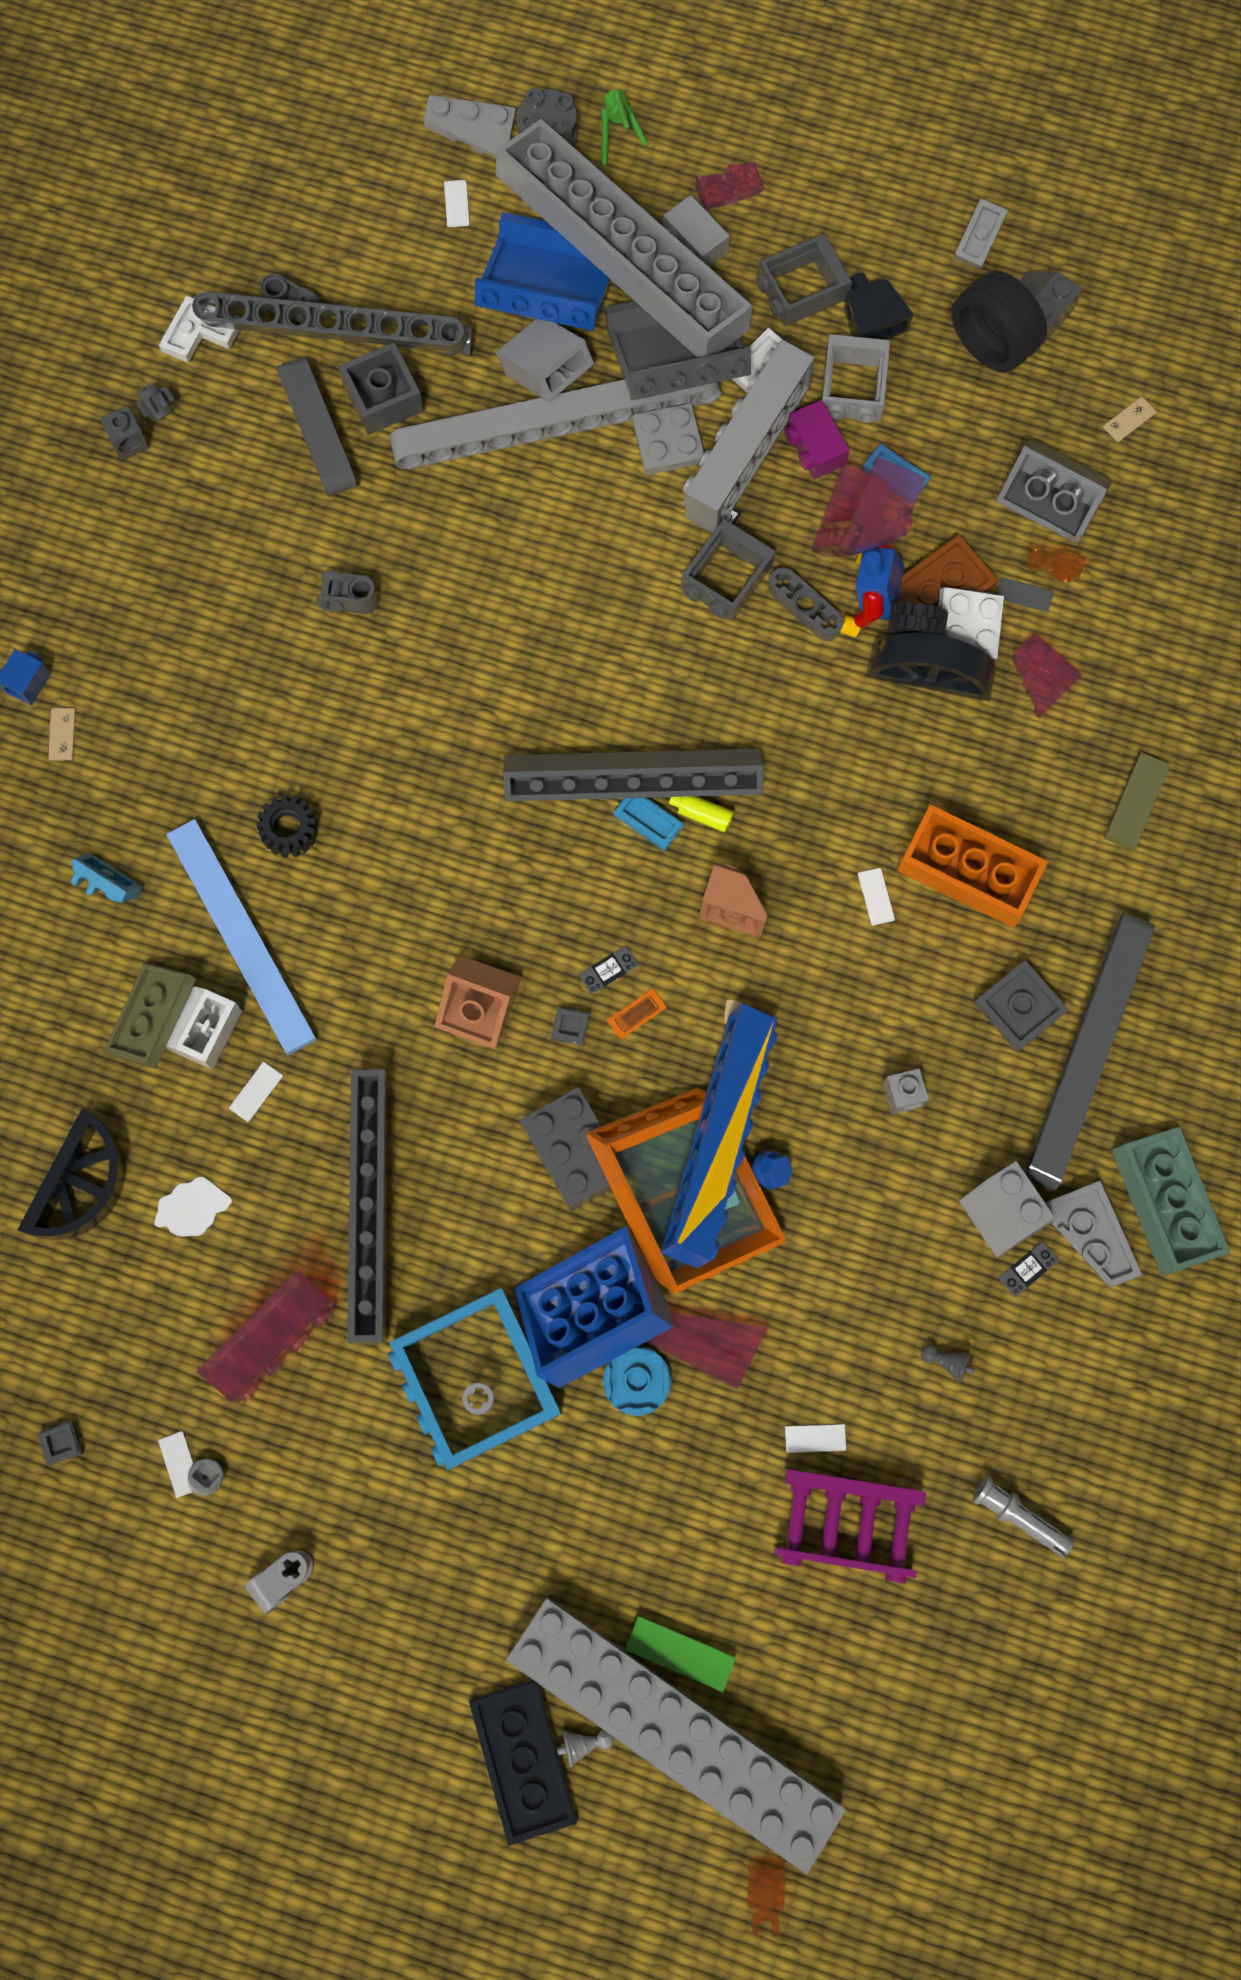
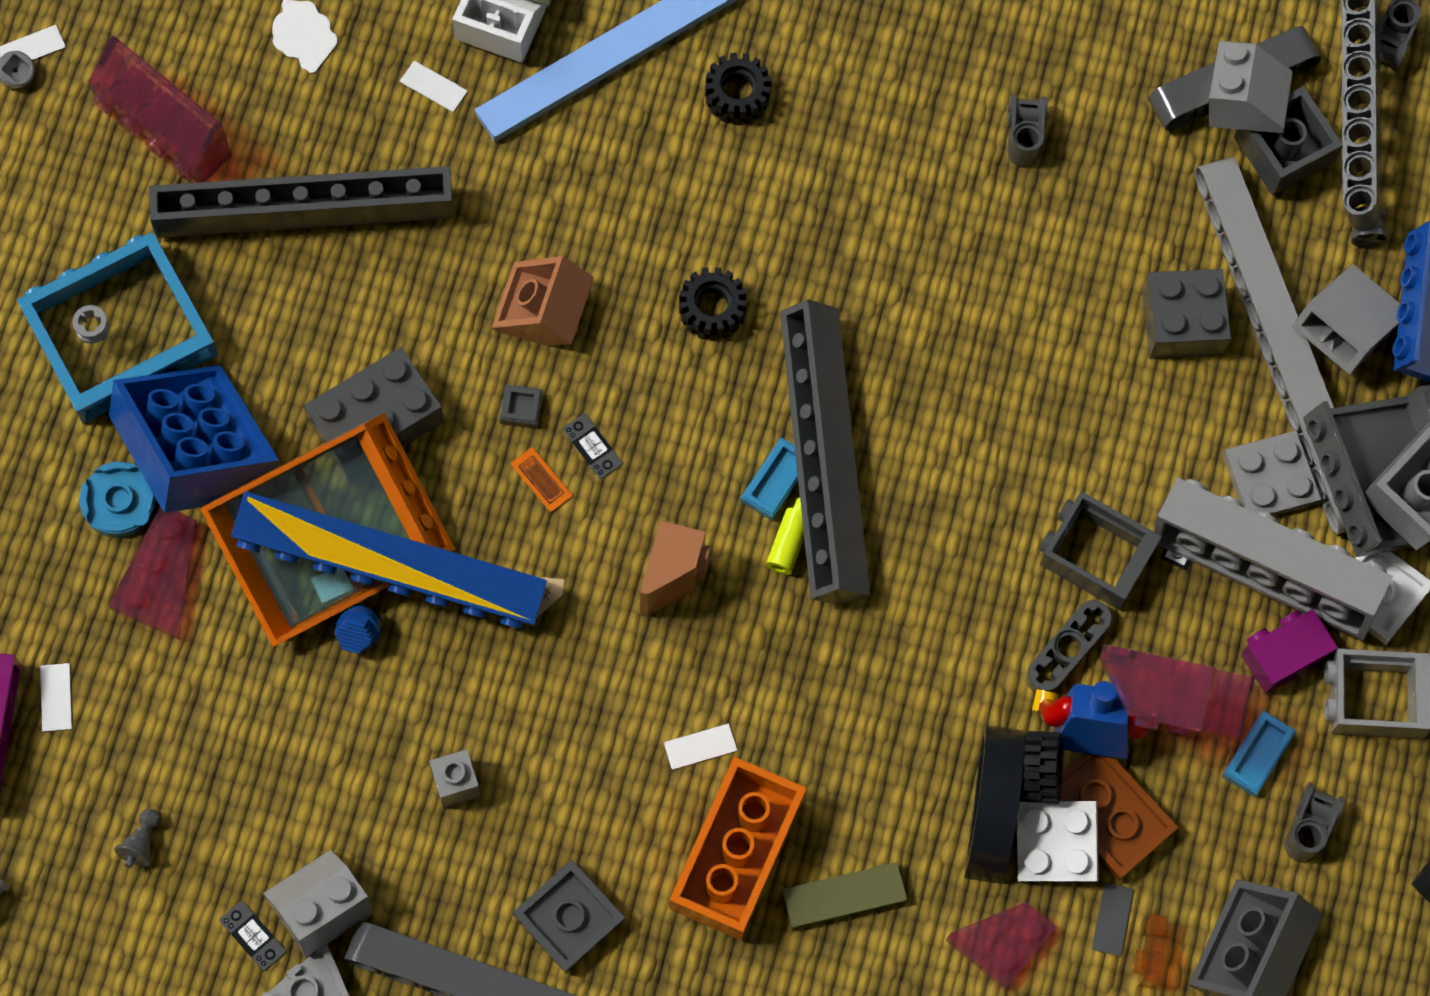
camera: 85 degrees right, 5 degrees down
(340, 406) = (1248, 89): none -> light grey slope
(484, 841) = (718, 283): none -> black tyre
(527, 484) = (1186, 313): none -> dark grey brick
(953, 438) = (1315, 817): none -> dark grey piece
(1005, 791) = (844, 895): none -> olive tile

